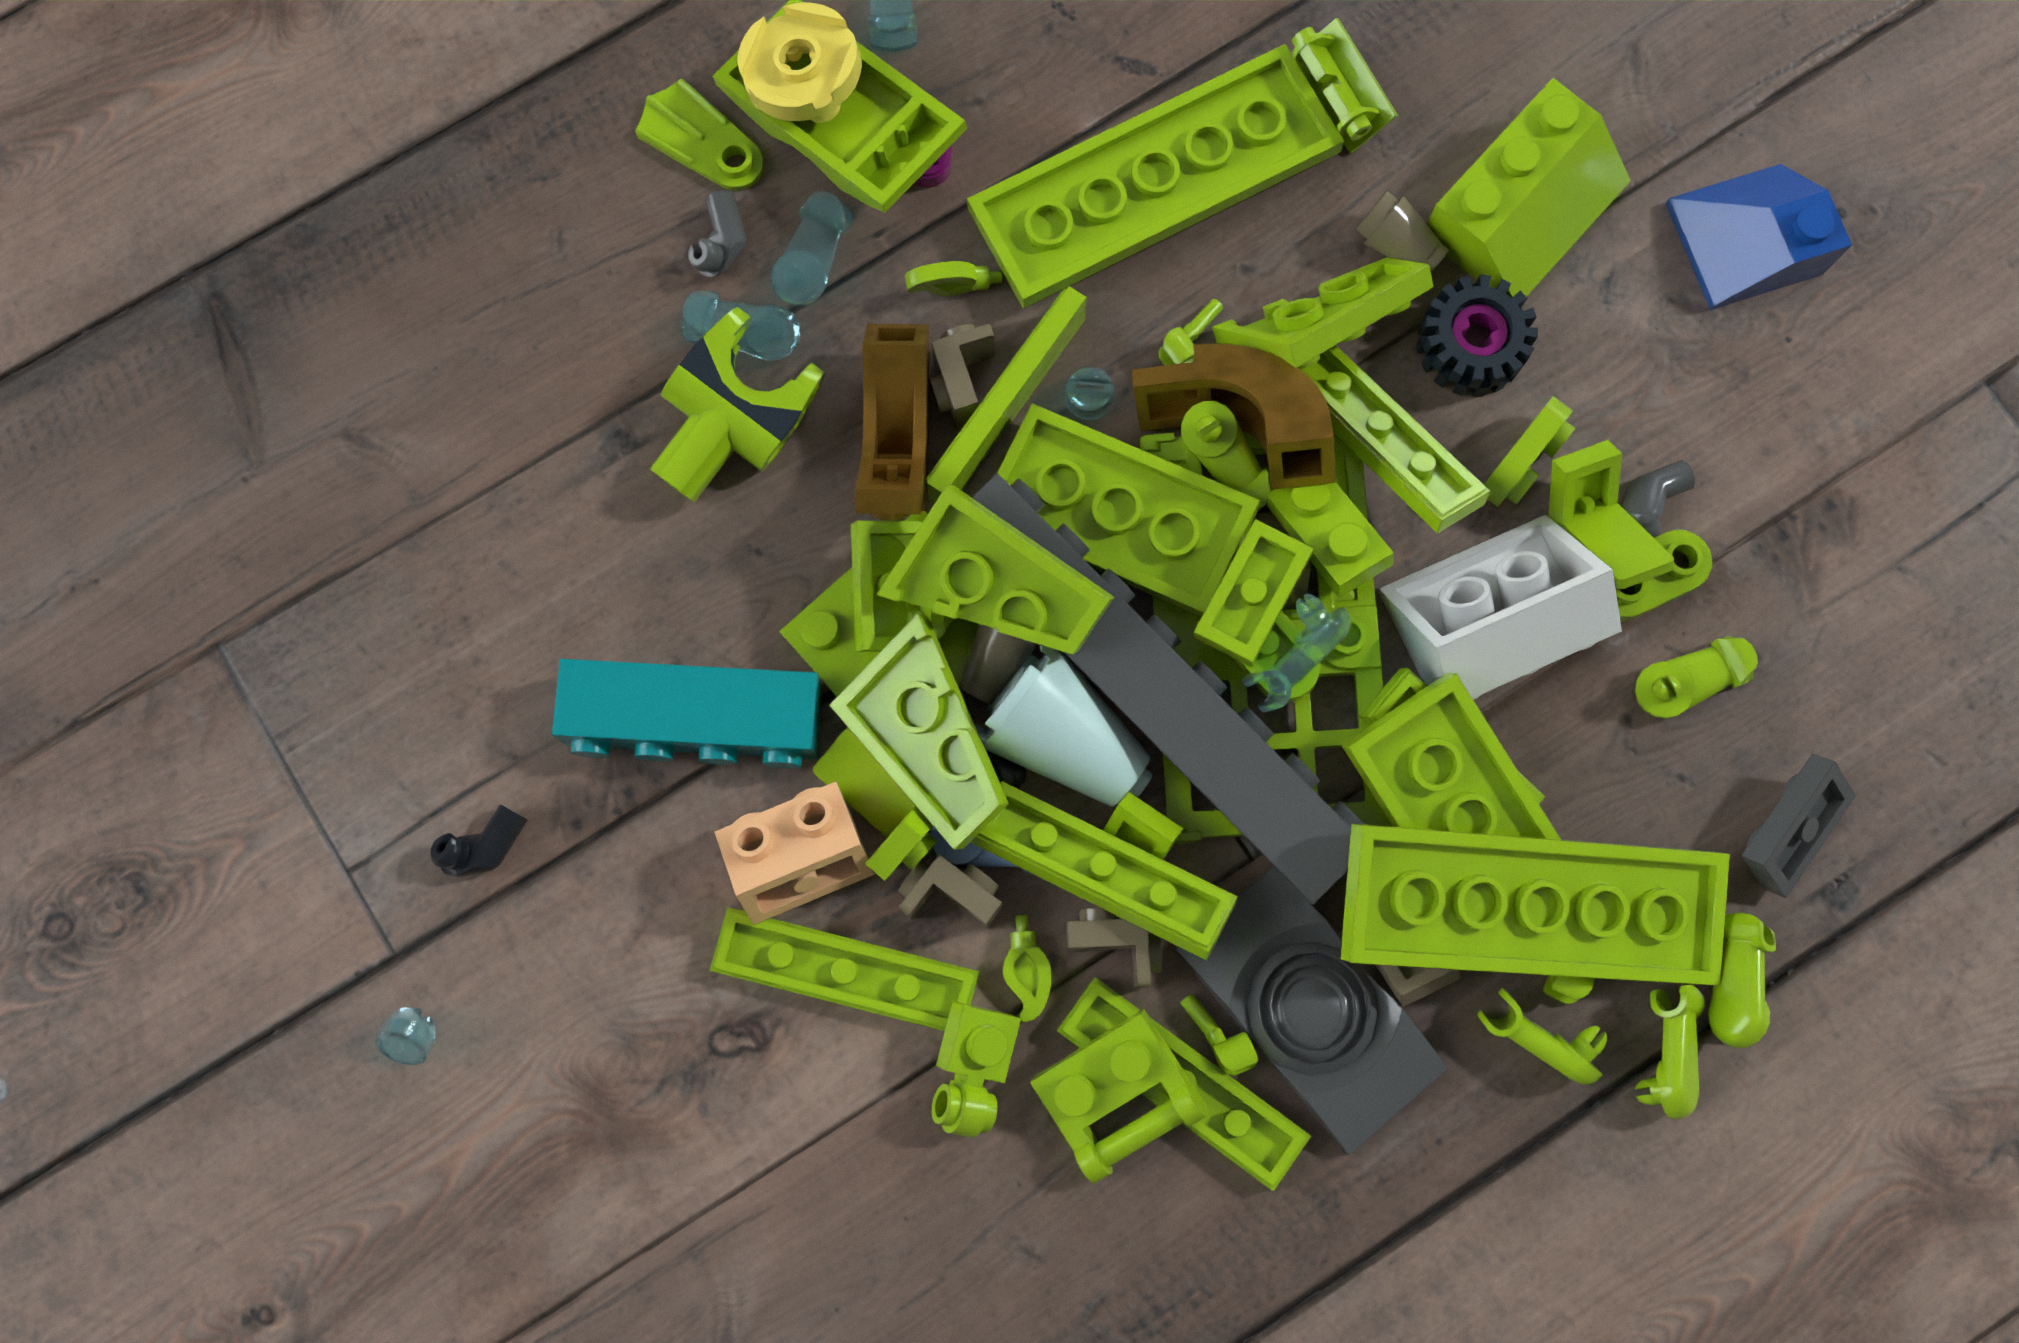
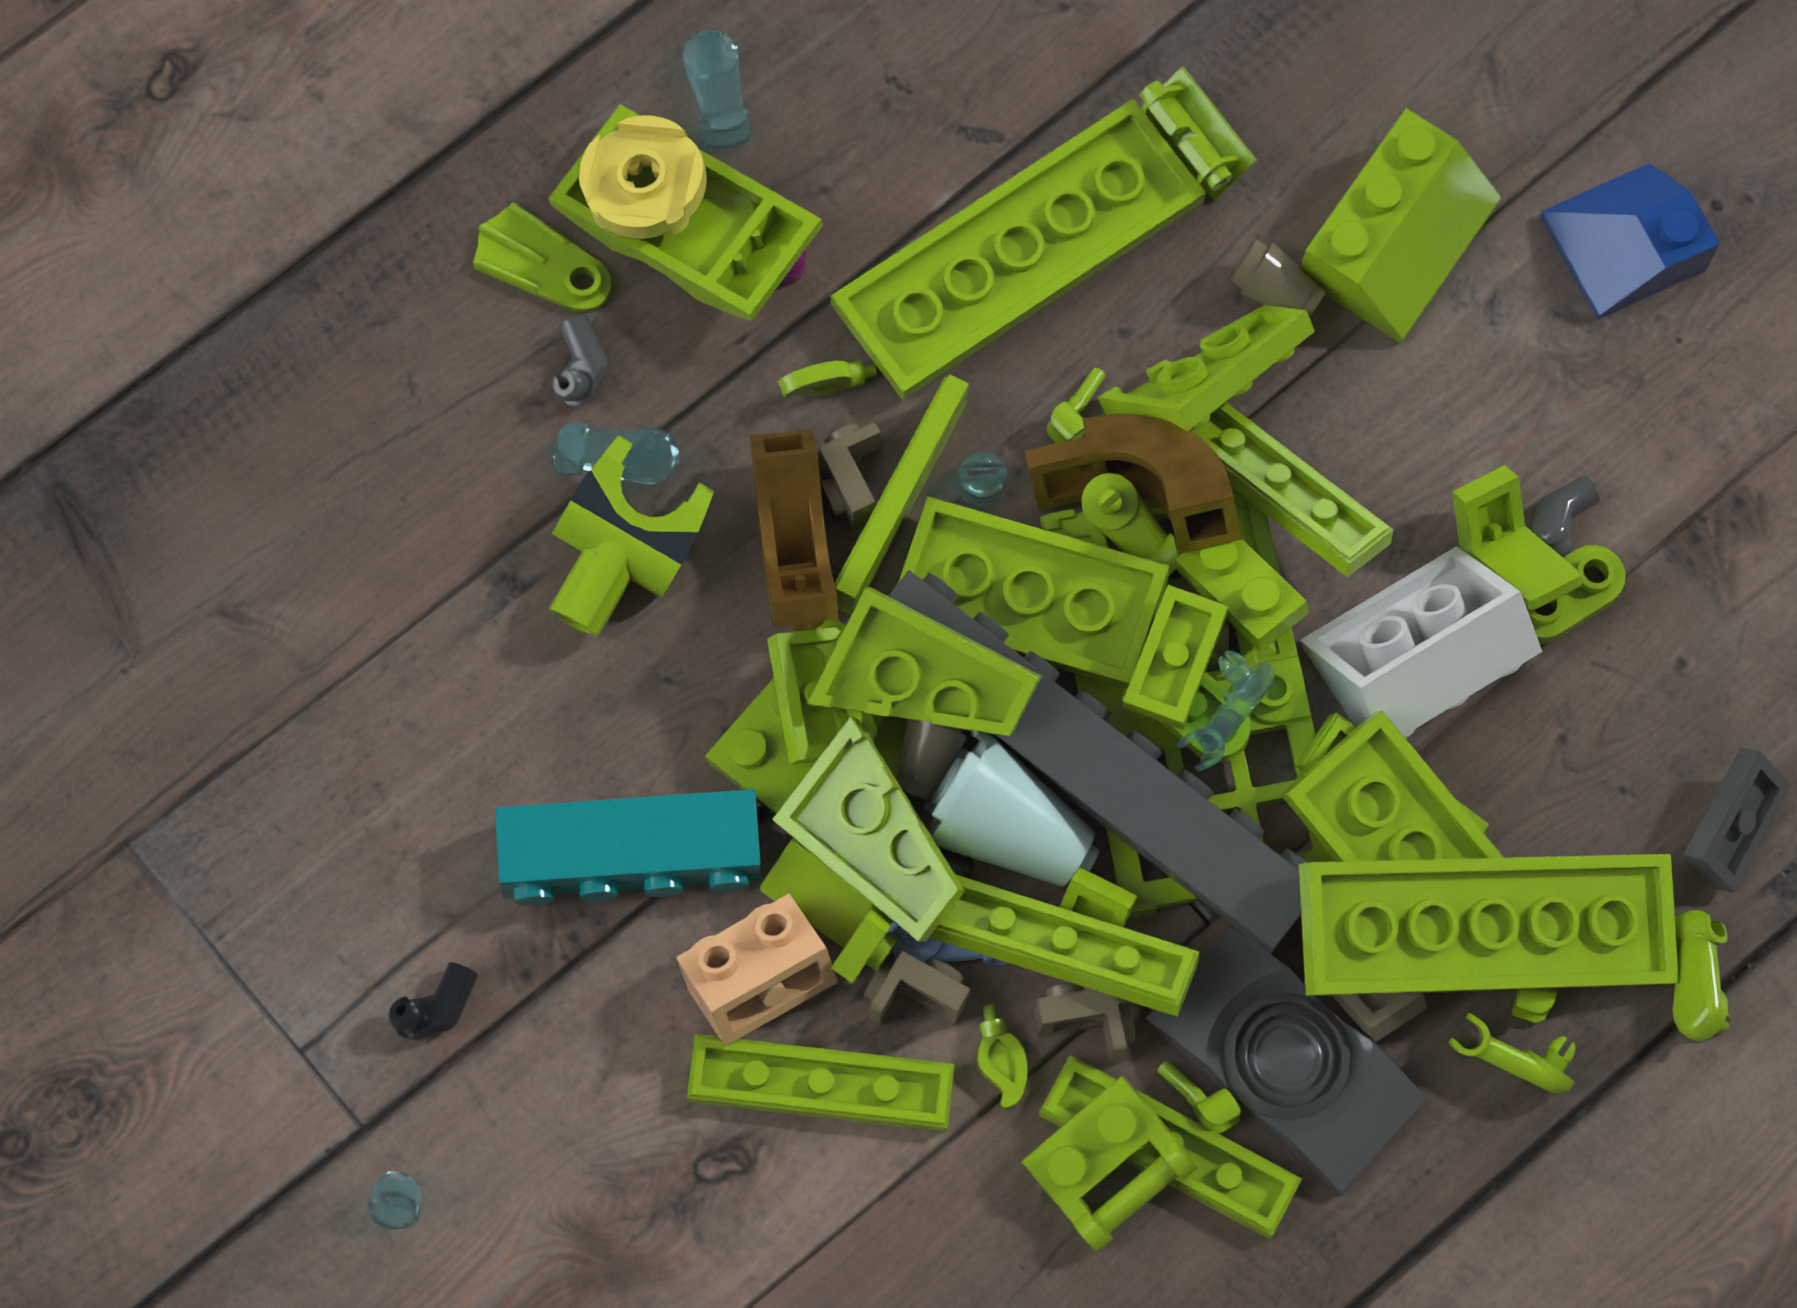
camera: 15 degrees left, 5 degrees down
(805, 266) = (674, 376): clear light blue piece -> none
(975, 1048) = (965, 1137): lime plate -> none
(1472, 366) = (1395, 382): black bush -> none
(1545, 435) = (1443, 466): lime plate -> none
(1678, 1072) = (1648, 1072): lime piece -> none
(1683, 682) = (1612, 695): lime piece -> none

